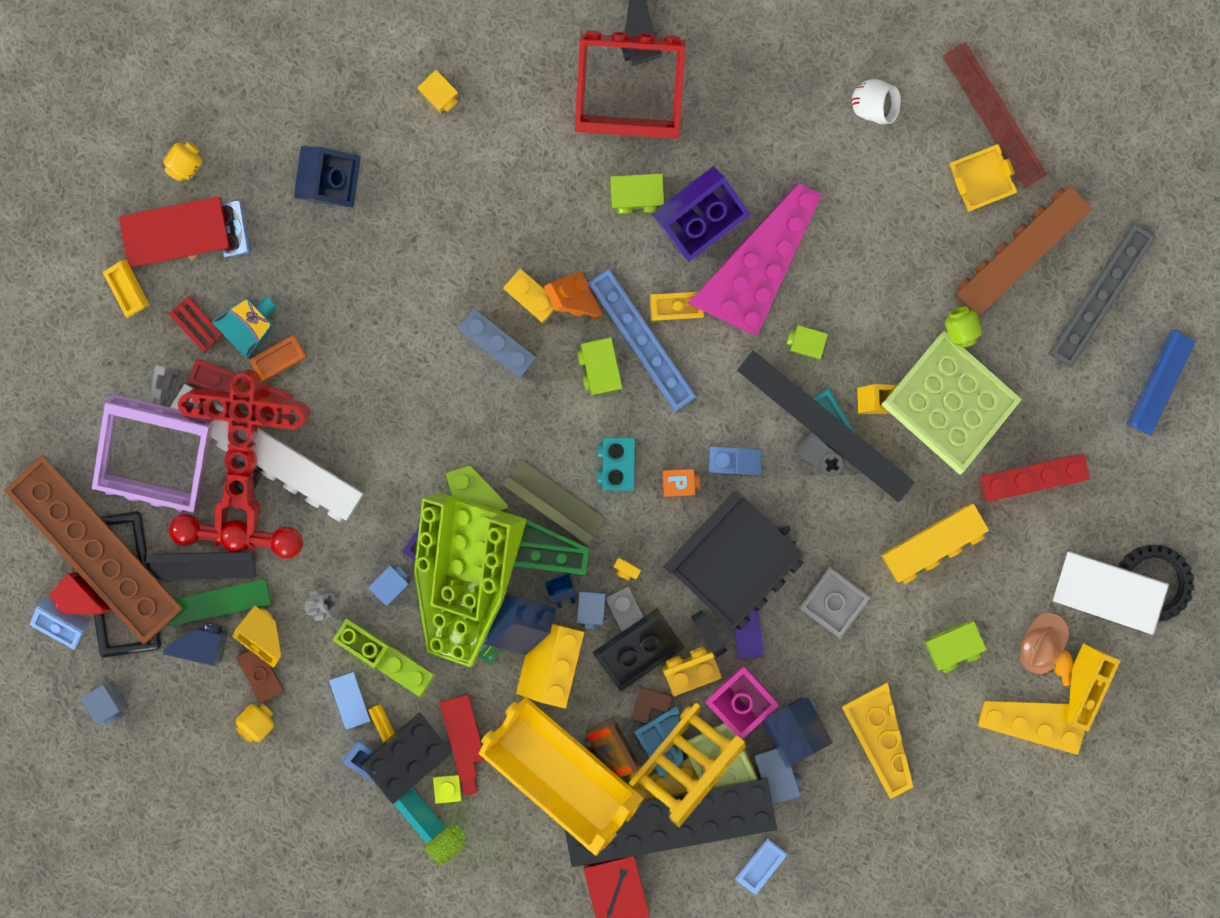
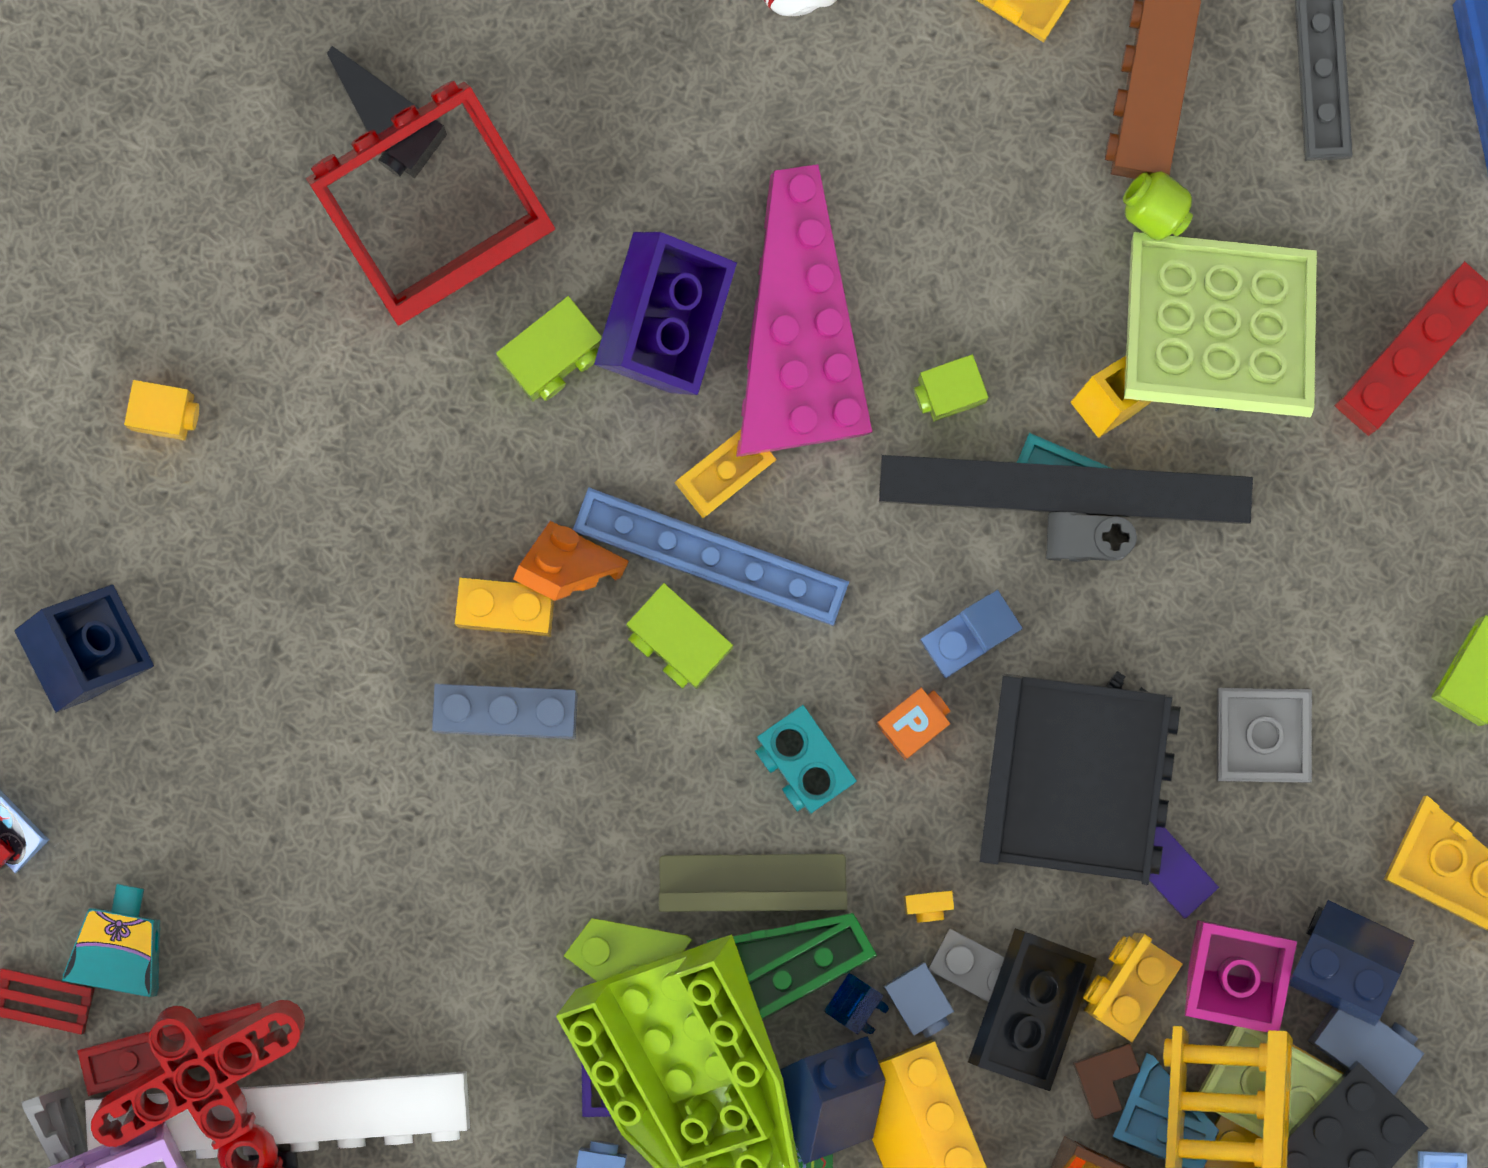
camera: 40 degrees left, 5 degrees down
(278, 358) = (198, 964): orange tile -> none
(709, 633) = (1116, 911): black beam -> none
(934, 543) = (1345, 545): yellow brick -> none

